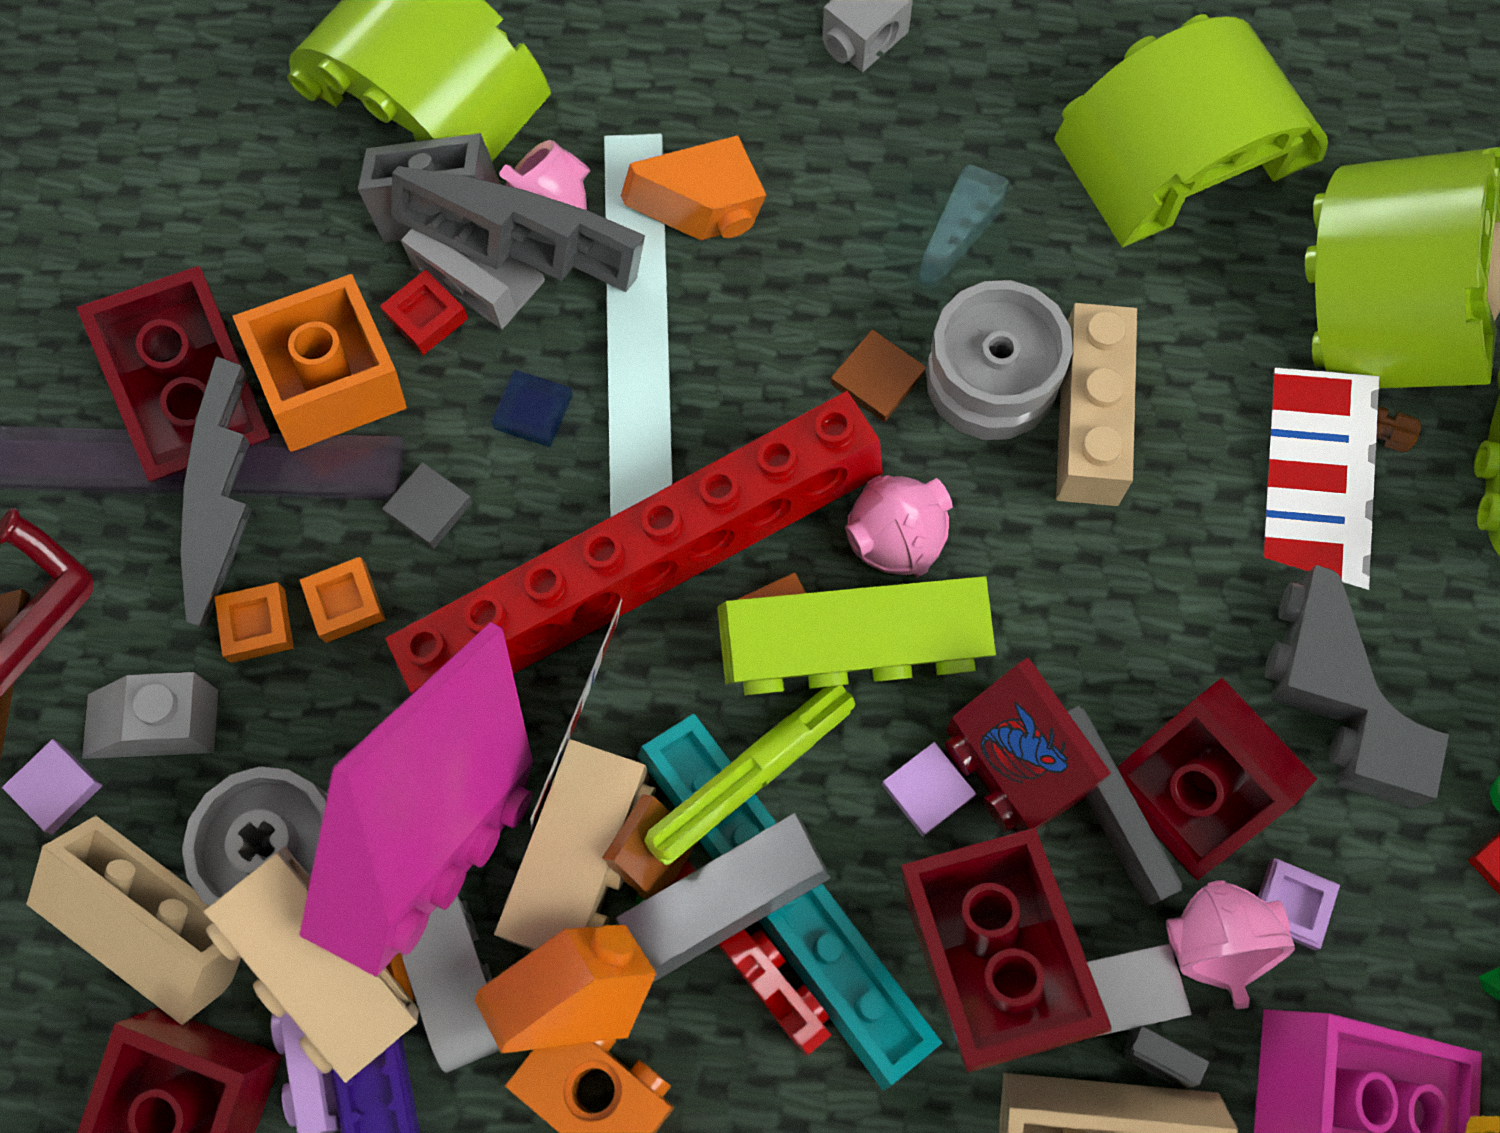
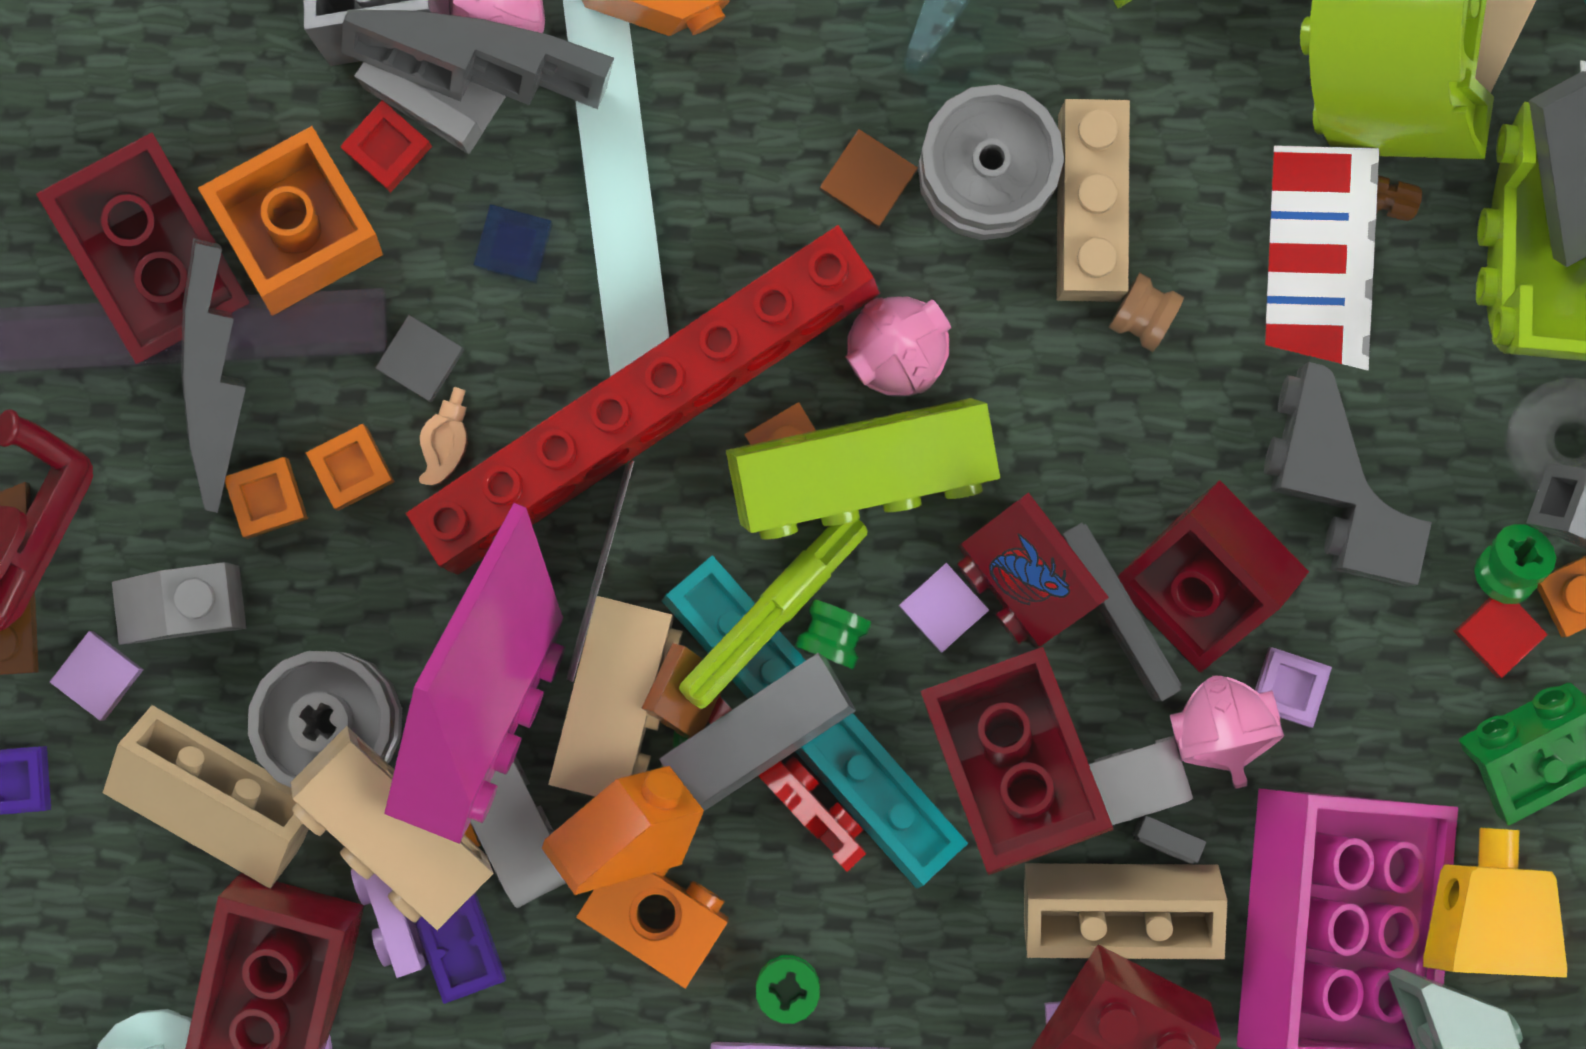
camera: 10 degrees left, 15 degrees up
(440, 579) = (444, 440): none -> light nougat piece
(815, 801) = (833, 633): none -> green wheel
(1146, 512) = (1146, 312): none -> medium nougat wheel

